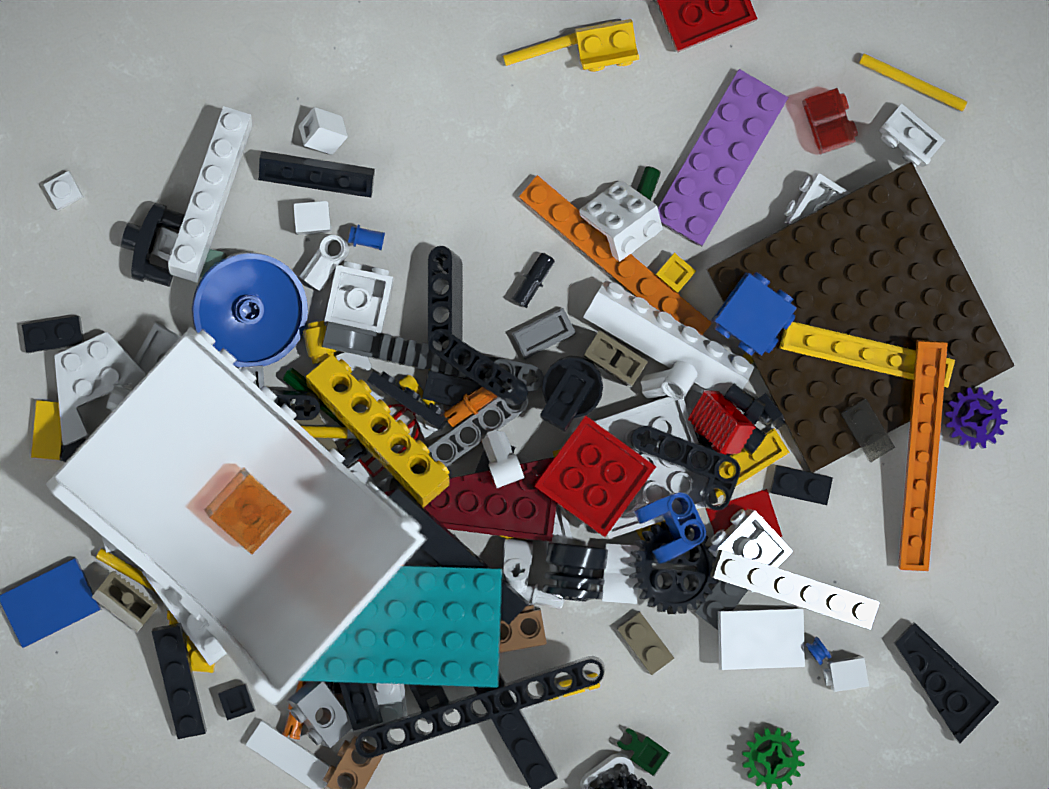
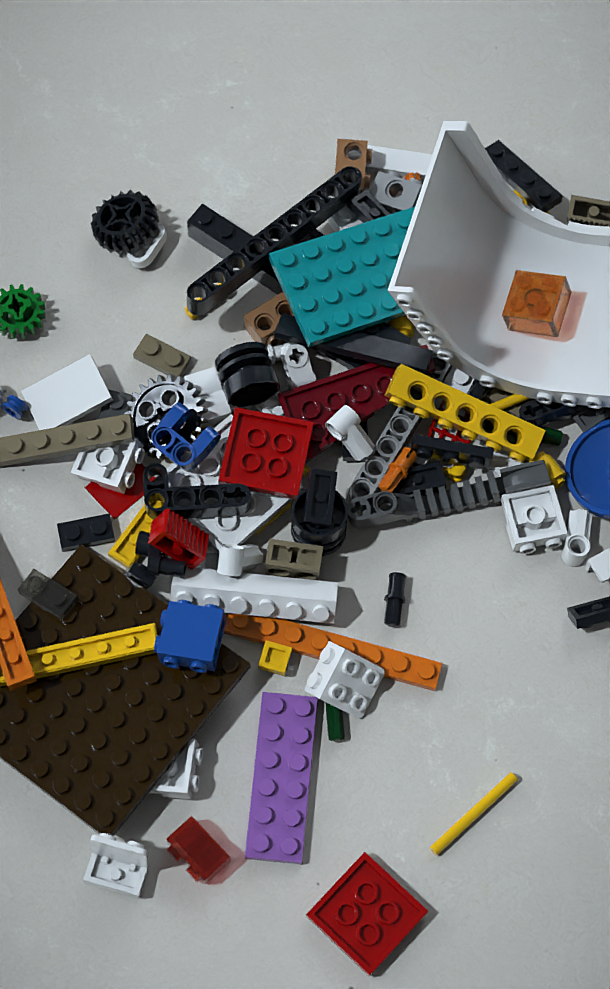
camera: 150 degrees right, 20 degrees down
(366, 237) = (554, 572): blue pin -> none
(447, 269) = (472, 571): black beam -> none
(544, 333) = (364, 561): light grey tile -> none
(607, 45) = (430, 827): yellow bracket -> none
(647, 753) = (122, 274): dark green plate -> none
(913, 82) = (135, 924): yellow bar -> none

